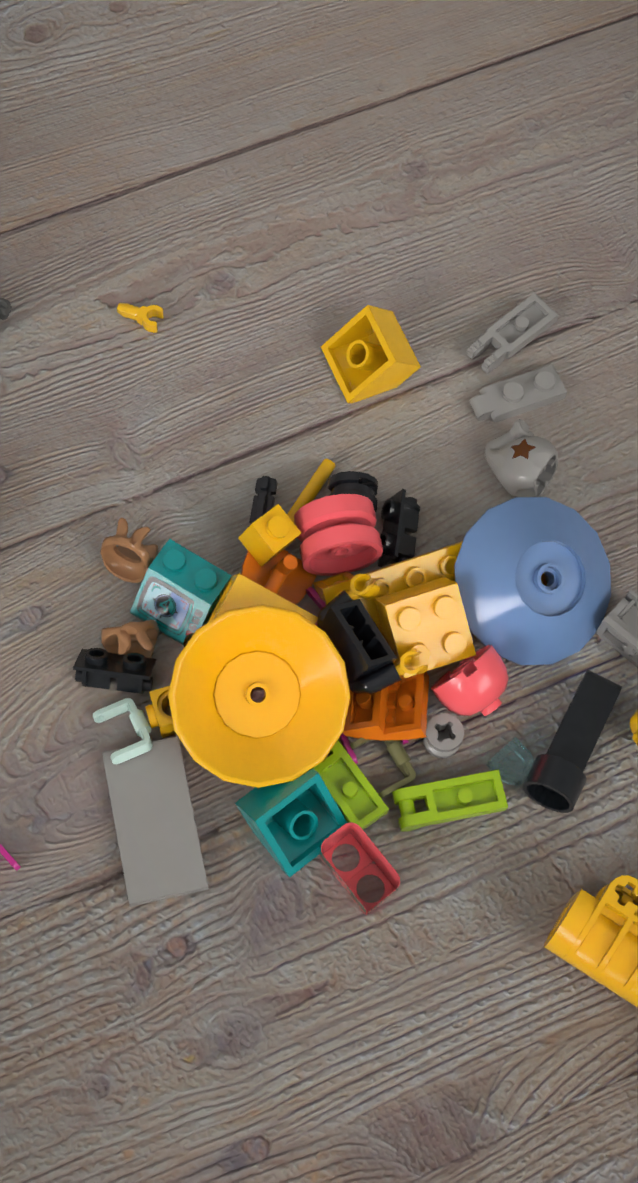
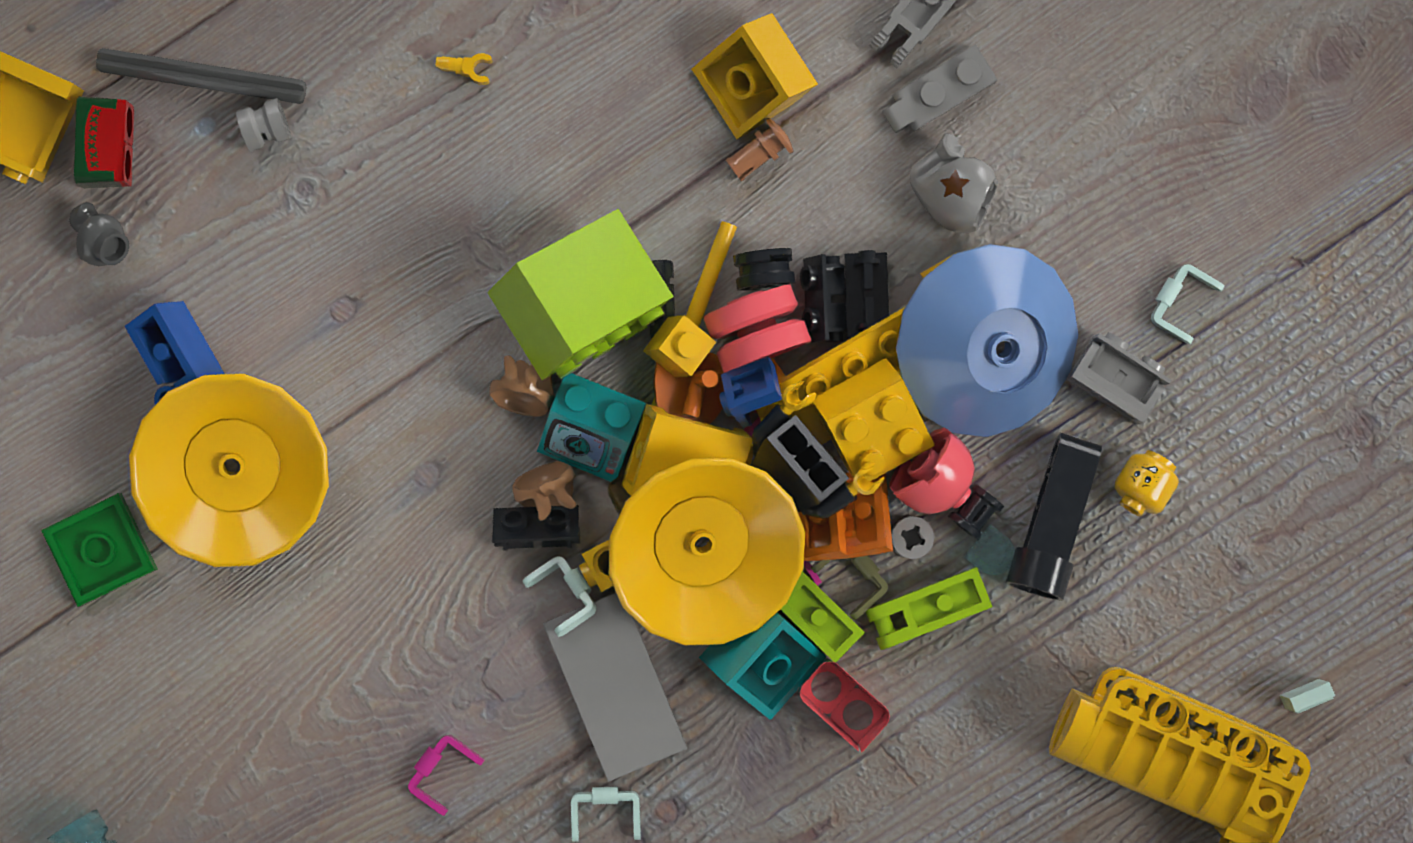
camera: 10 degrees left, 20 degrees up
(121, 919) = (605, 795): none -> light aqua piece
(193, 476) = (581, 296): none -> lime container
(322, 575) = (749, 389): none -> blue bracket
(369, 408) = (760, 150): none -> nougat pin
(435, 524) = (865, 290): none -> black hinge
(515, 718) = (976, 511): none -> black bush

